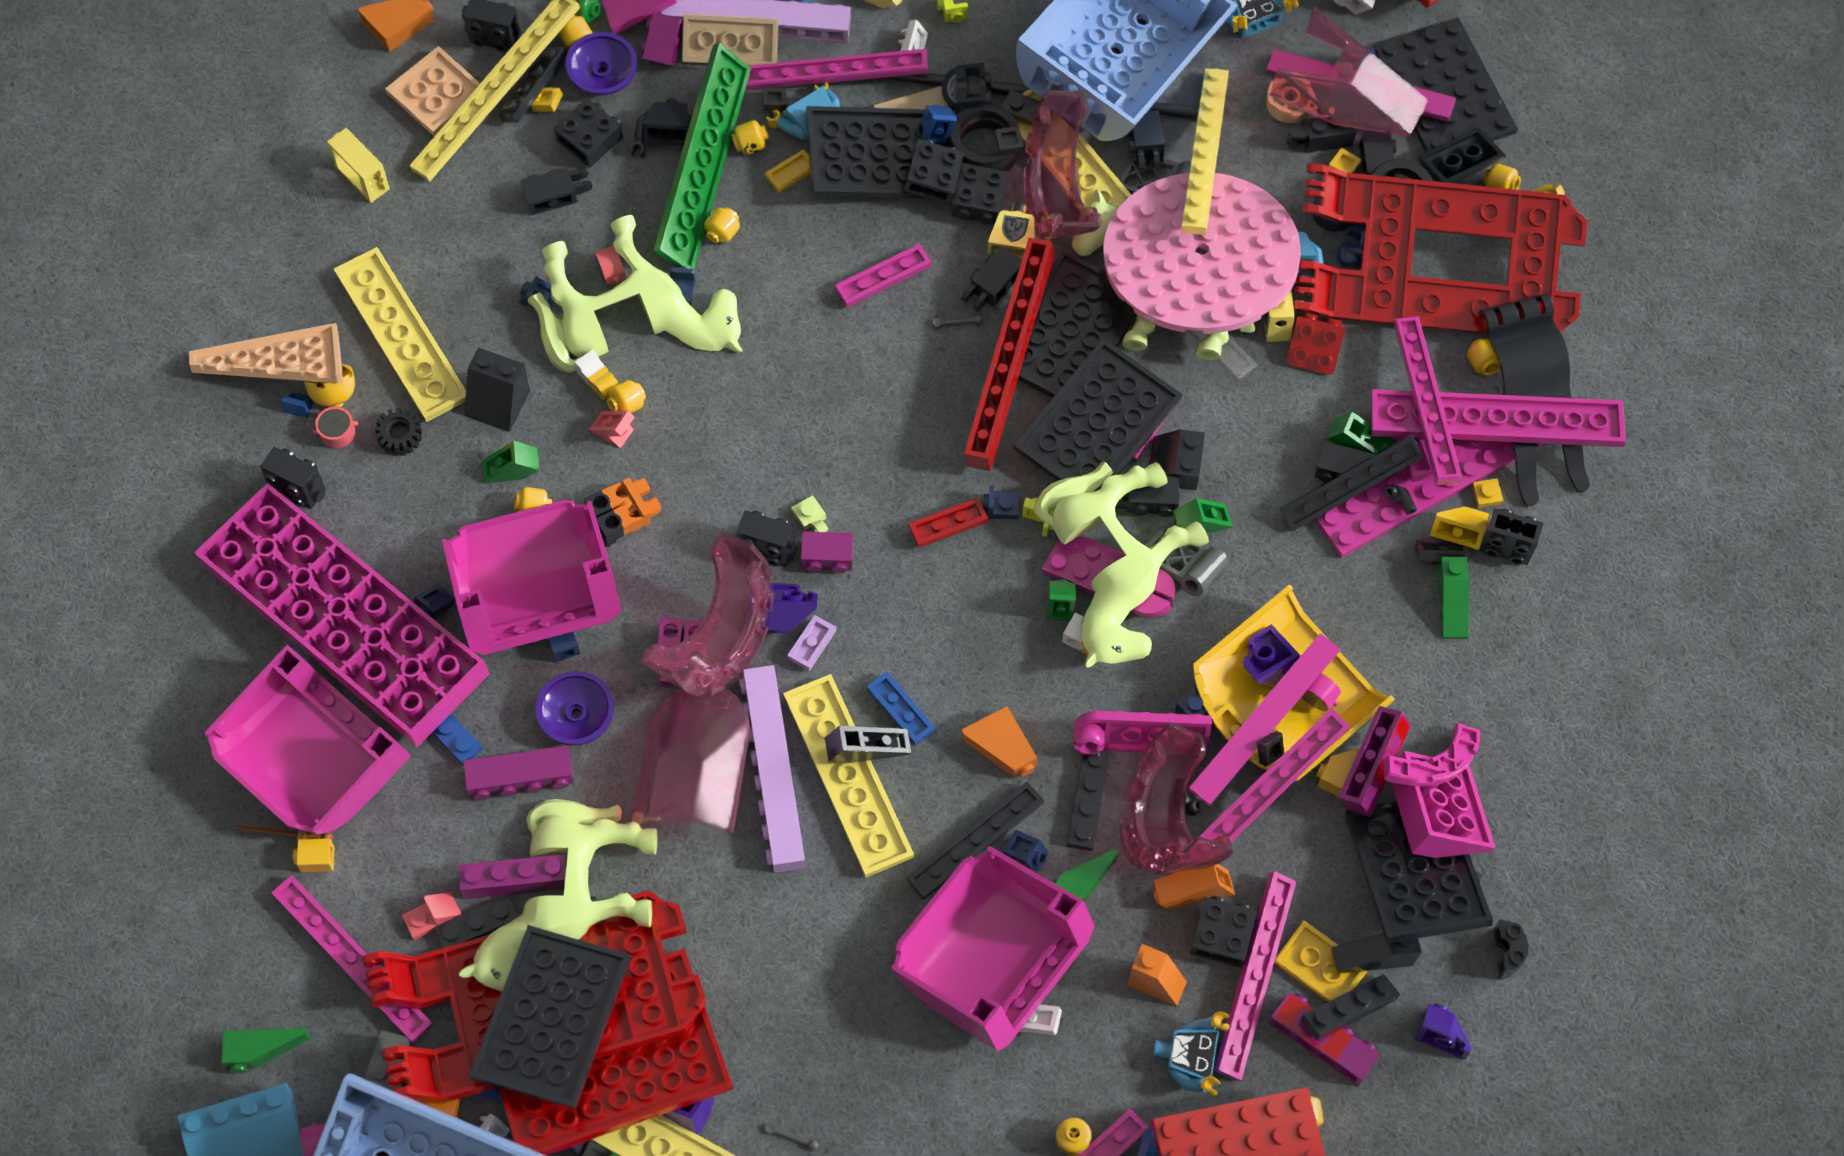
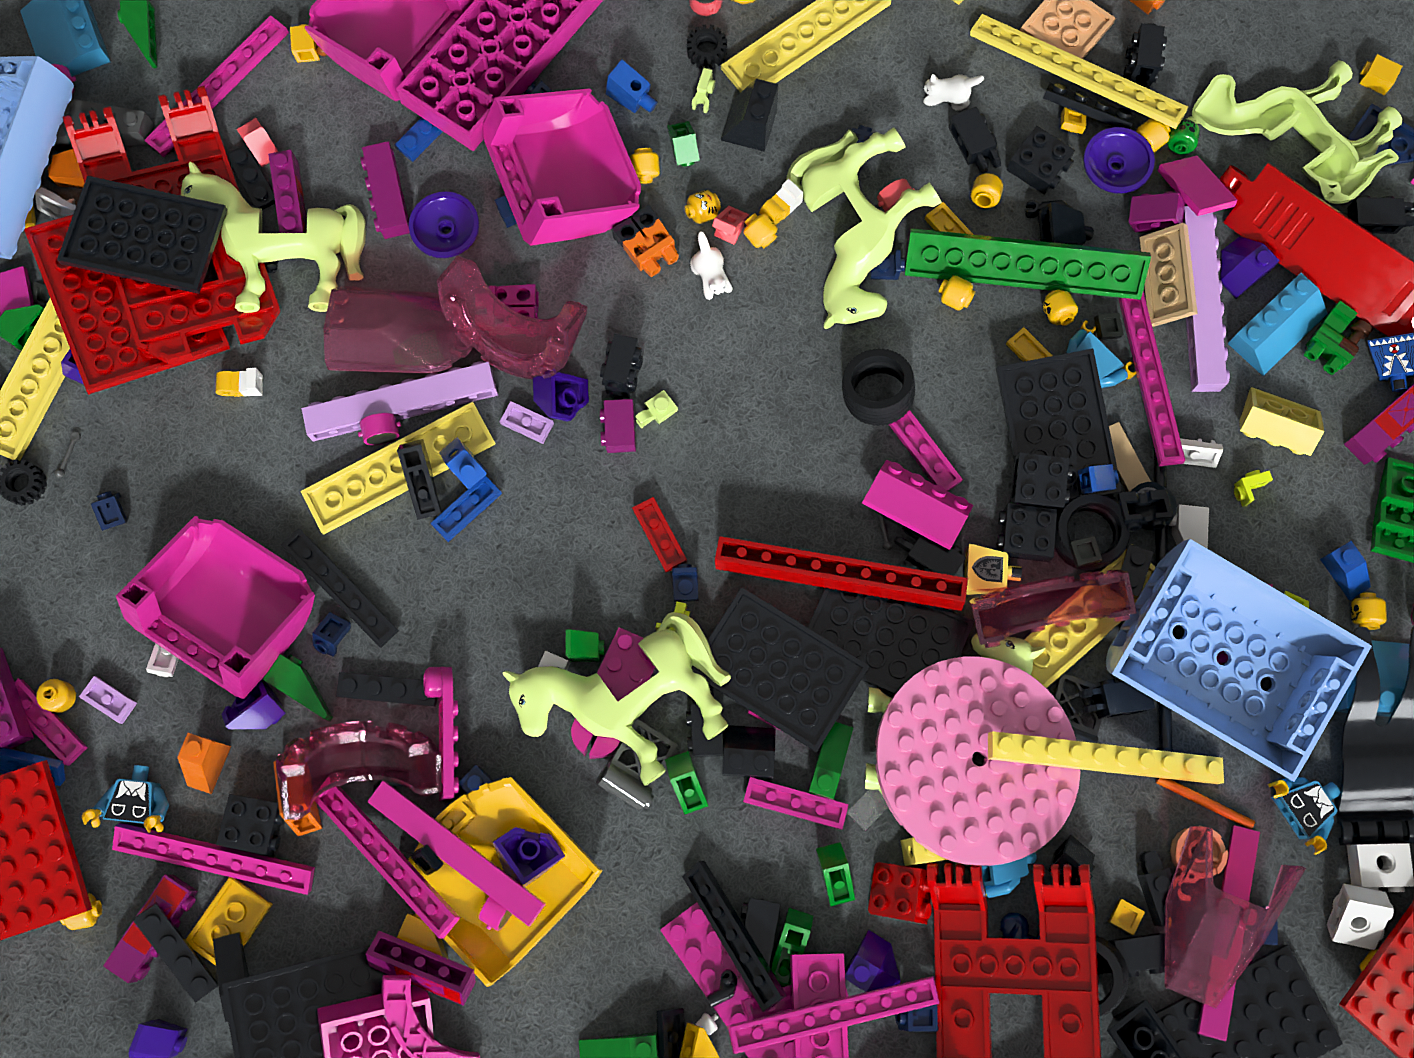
camera: 90 degrees right, 10 degrees up
(439, 509) = (629, 88): none -> blue torso
(449, 438) = (705, 86): none -> yellowish green plate
(493, 200) = (952, 90): none -> white animal
(589, 451) = (702, 206): none -> yellow head
(613, 185) = (987, 190): none -> yellow head
(647, 224) = (945, 220): none -> yellow plate
(659, 450) = (709, 265): none -> white animal
(730, 938) = (239, 383): none -> leg
(801, 281) = (873, 362): none -> black tyre
(805, 787) = (379, 429): none -> dark pink piece
(864, 1084) = (108, 510): none -> dark blue bracket
(867, 692) = (463, 463): none -> blue torso
(943, 281) = (918, 504): none -> dark pink slope
(997, 59) = (1191, 523): none -> white slope
(1002, 743) = (433, 604): orange slope -> none
(1079, 1085) = (108, 699): none -> lavender plate
(1108, 928) = (255, 711): none -> dark purple slope
(1198, 390) = (830, 761): none -> green slope
(1227, 424) = (796, 803): none -> dark pink plate
(1245, 87) = (1206, 802): none -> orange bar
(1292, 194) = (1075, 854): none -> black hinge
(1295, 394) = (835, 874): none -> green slope
(1380, 373) = (873, 964): none -> dark purple slope
(1428, 518) = (707, 1022): none -> white piece
(1433, 339) = (918, 1020): none -> dark blue bracket

